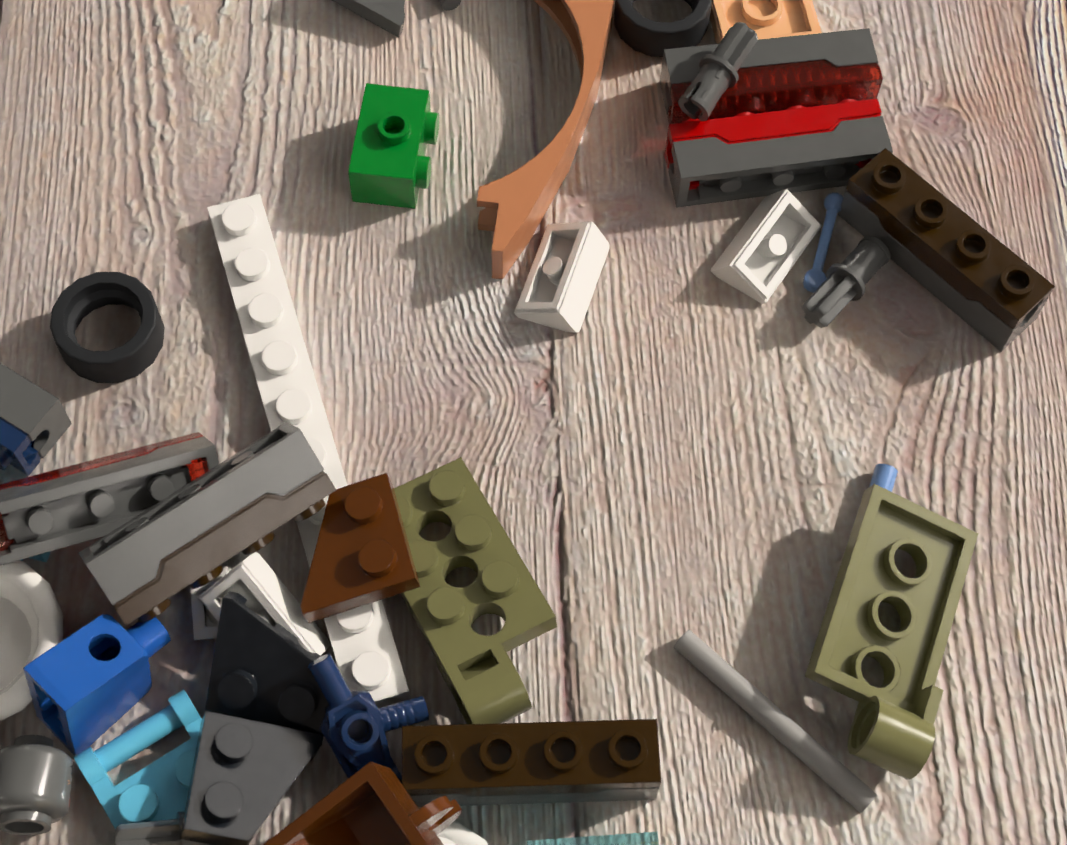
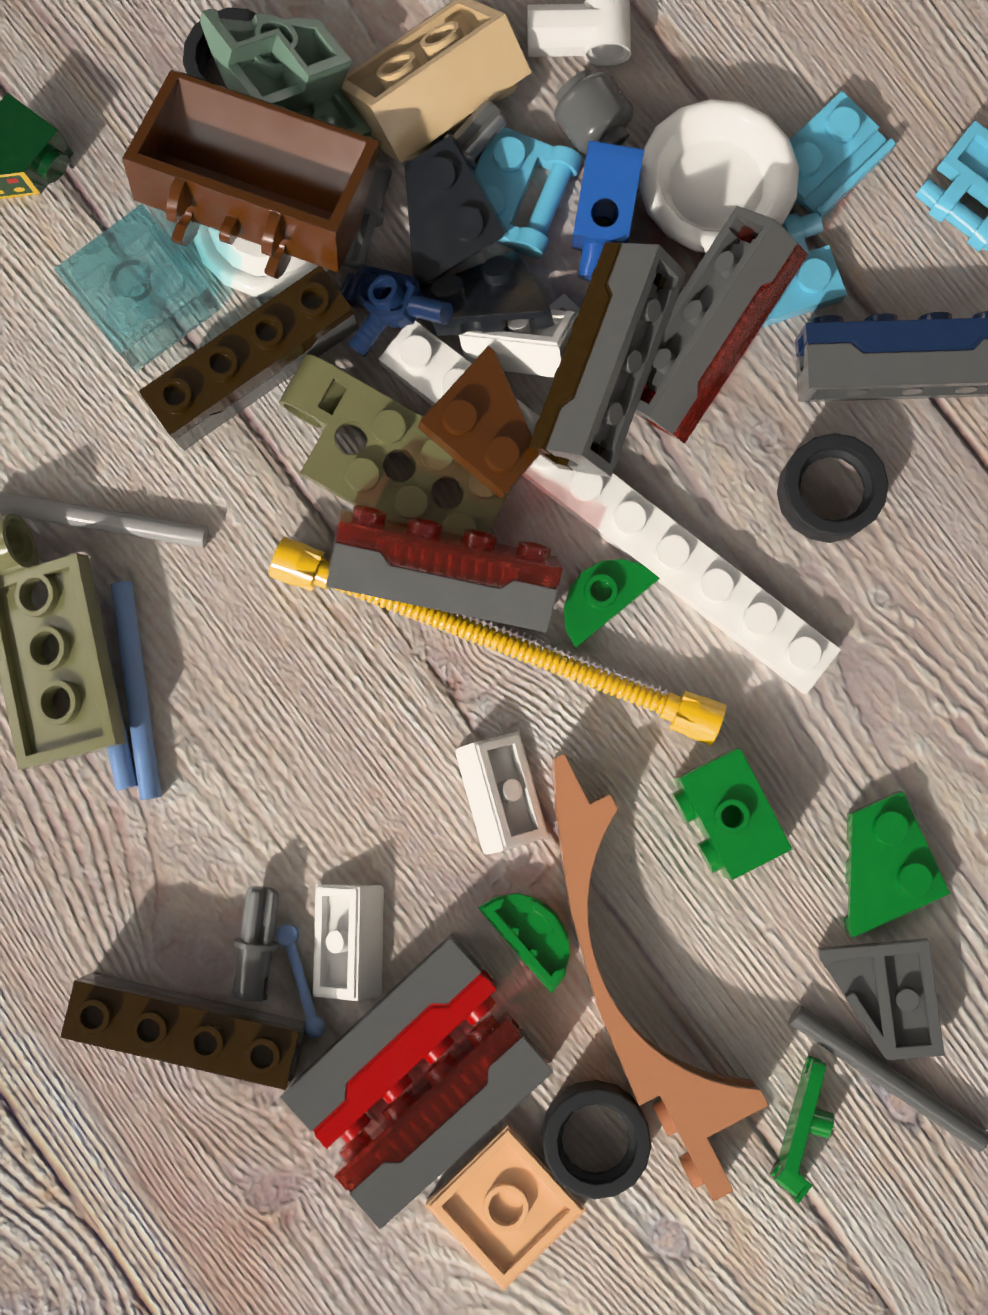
camera: 150 degrees right, 20 degrees up
(301, 52) = (887, 865): none -> green wing
(365, 369) = (601, 595): none -> green plate
(489, 450) = (443, 569): none -> piece
(605, 546) = (689, 713): none -> yellow hose
(611, 162) = (532, 933): none -> green plate
(718, 72) = (481, 1071): dark grey axle -> none
(828, 548) = (136, 690): none -> medium blue bar

